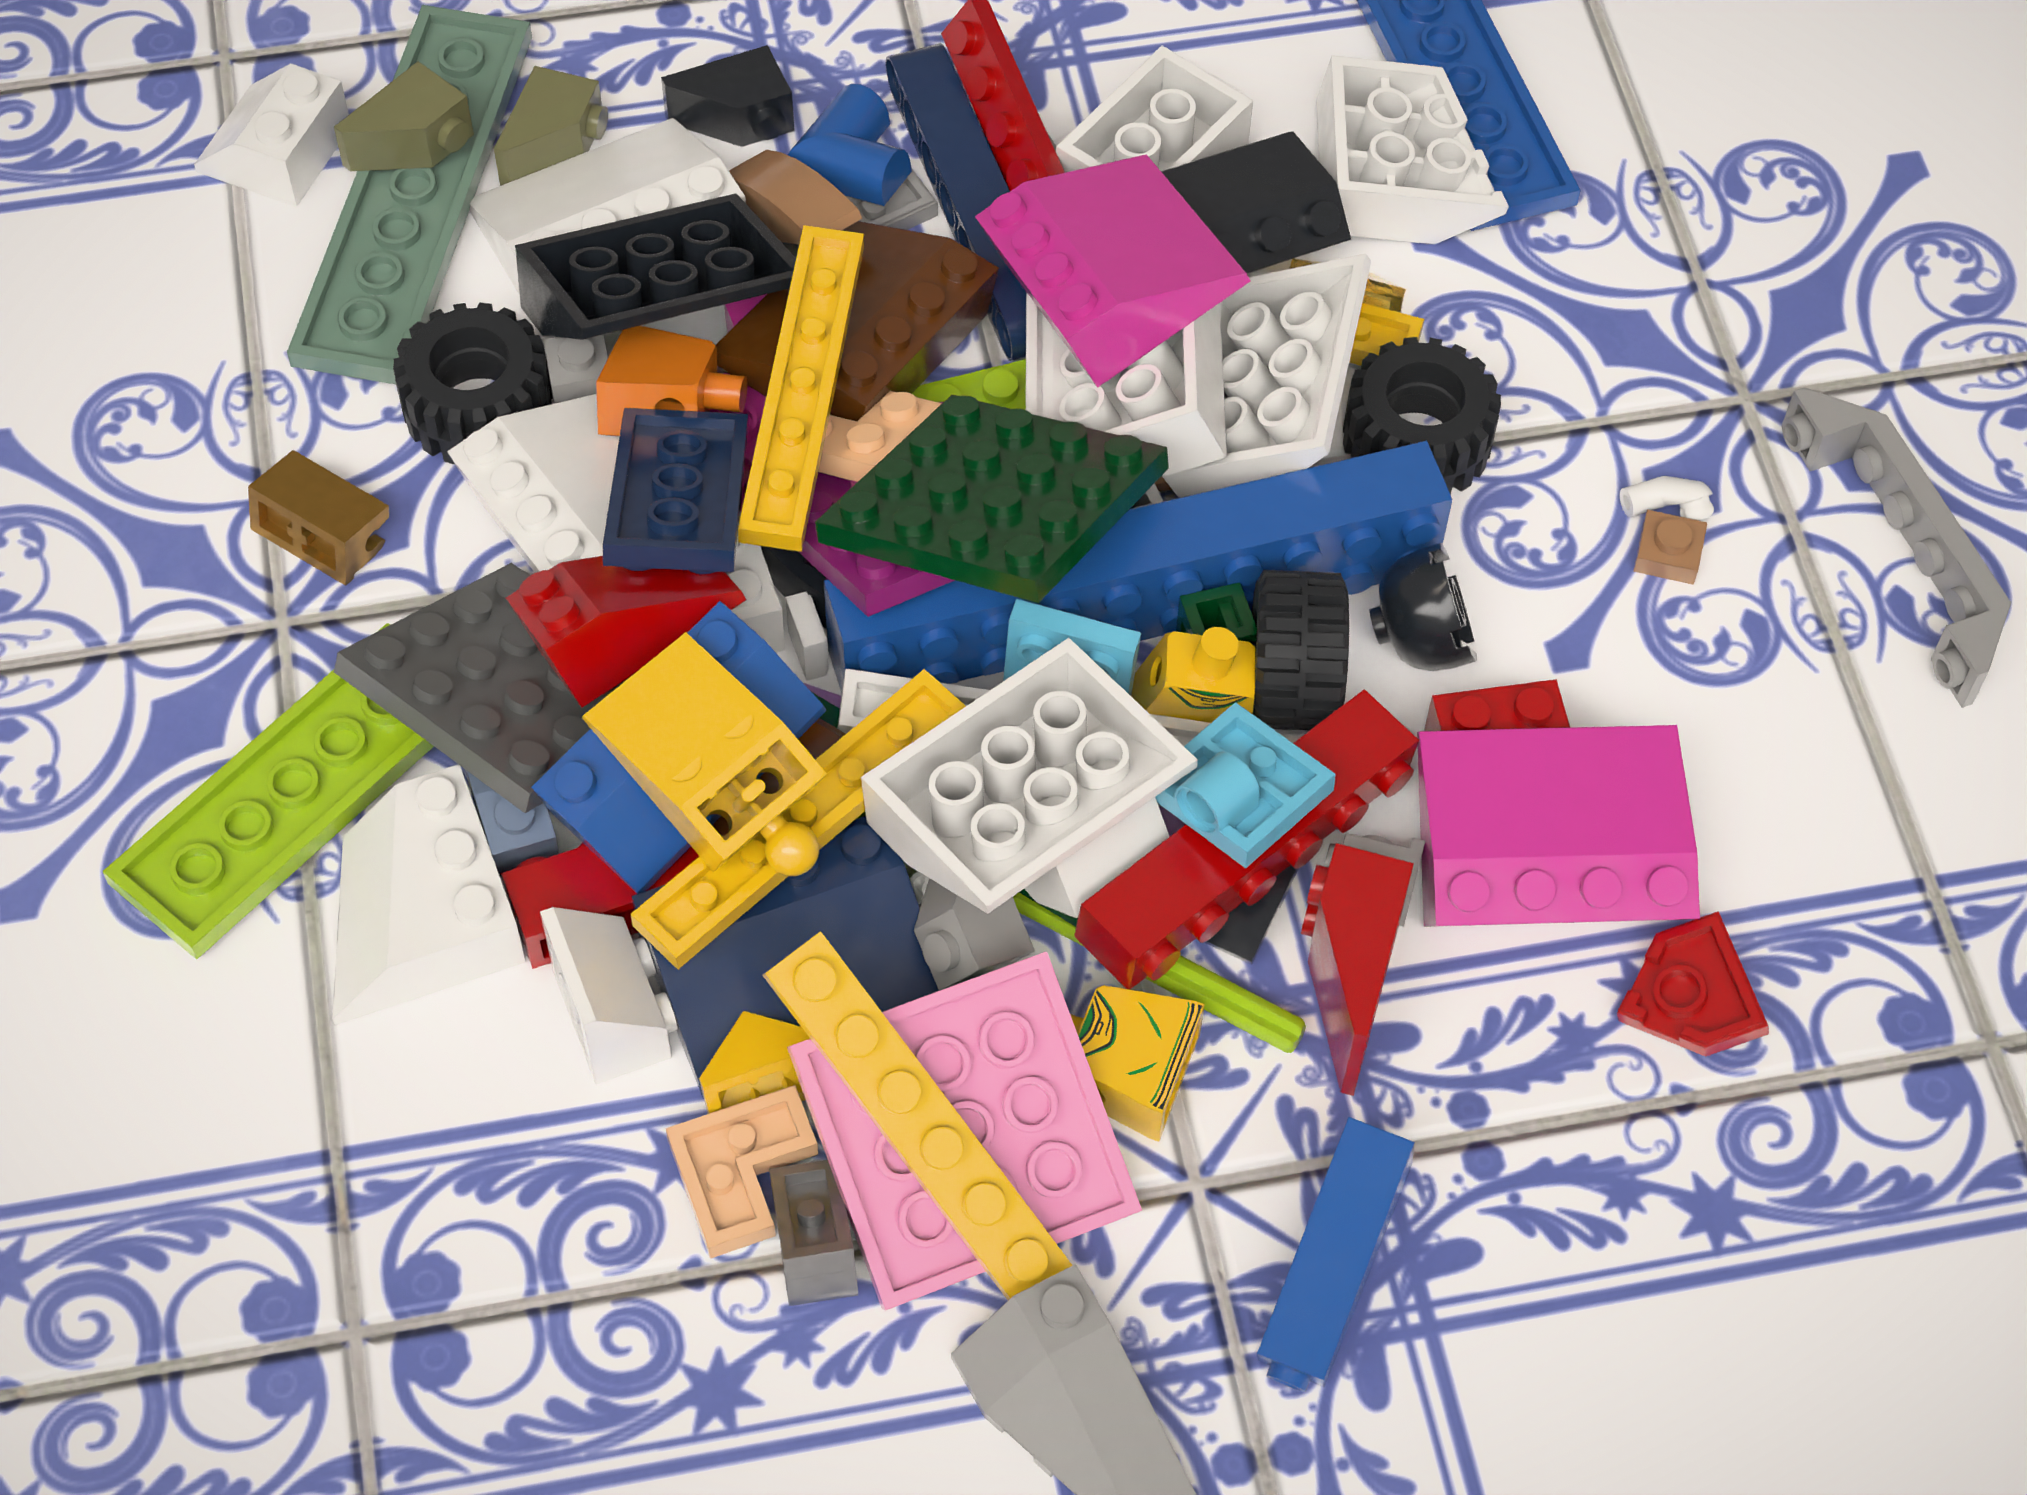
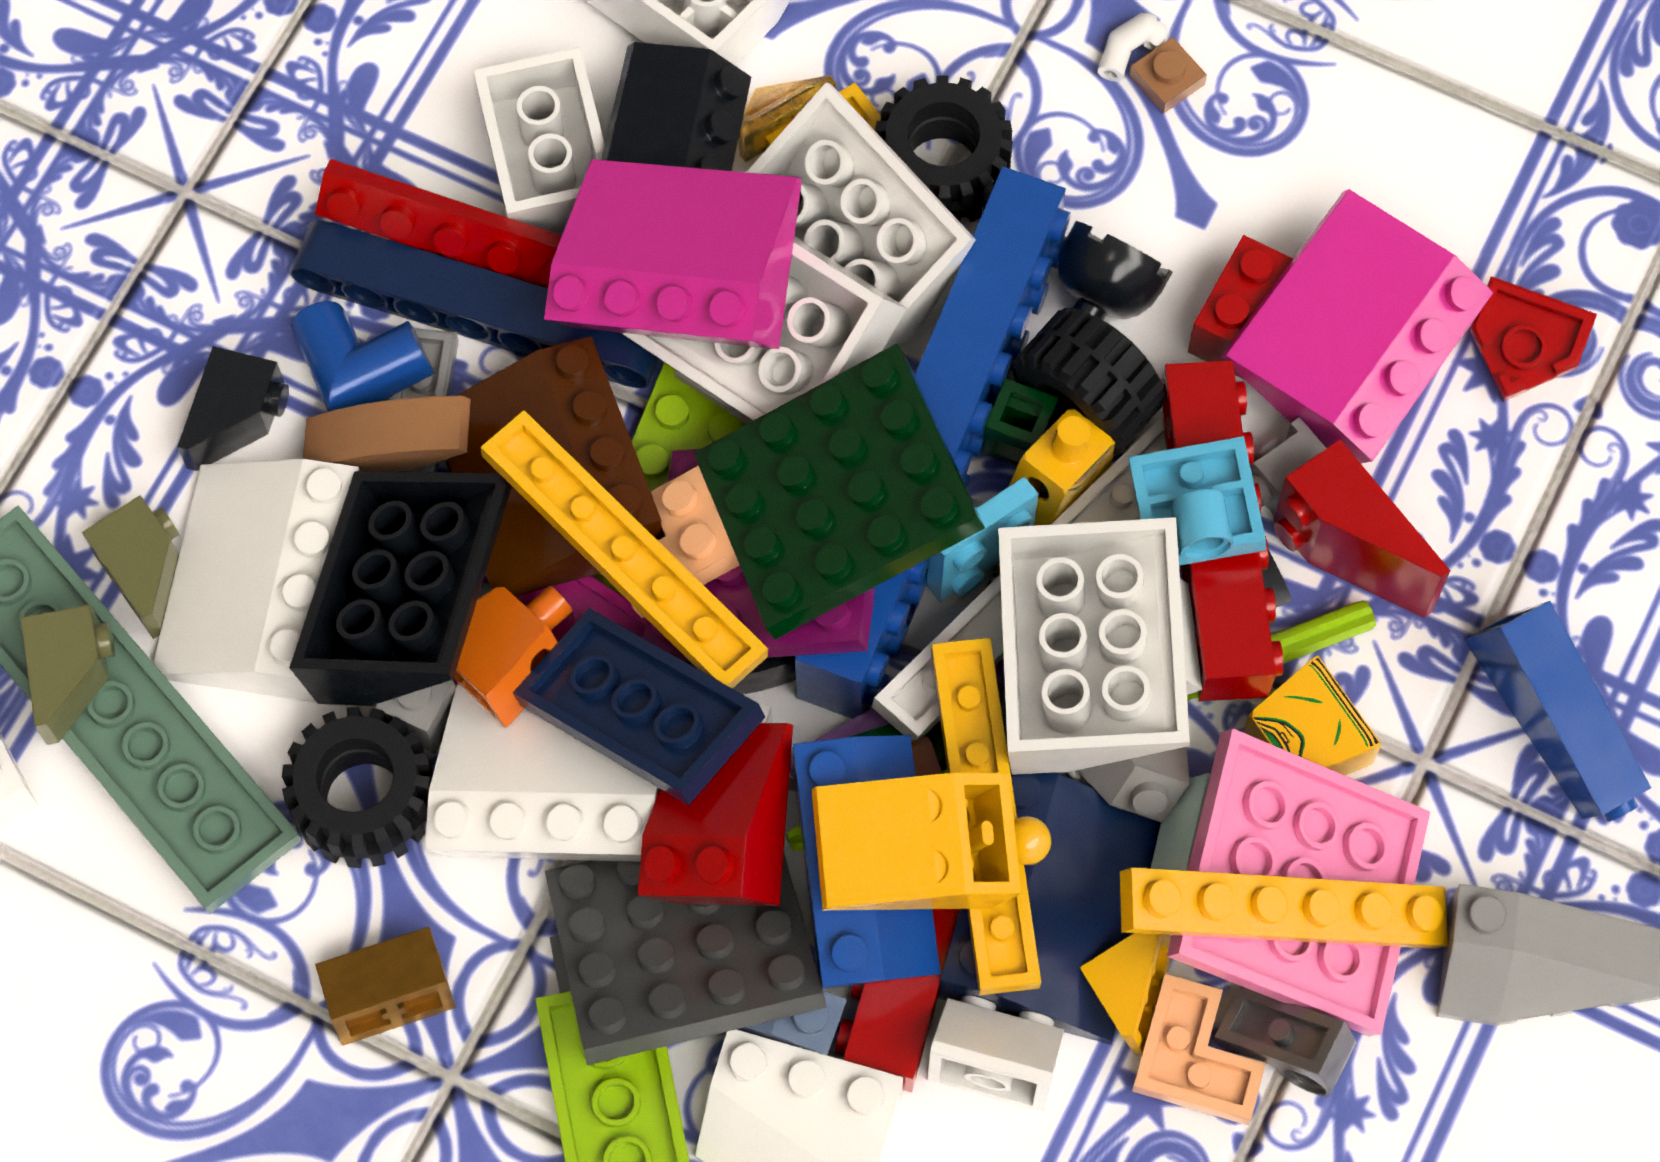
camera: 50 degrees left, 10 degrees up
(807, 635) = (789, 703): white tile -> none

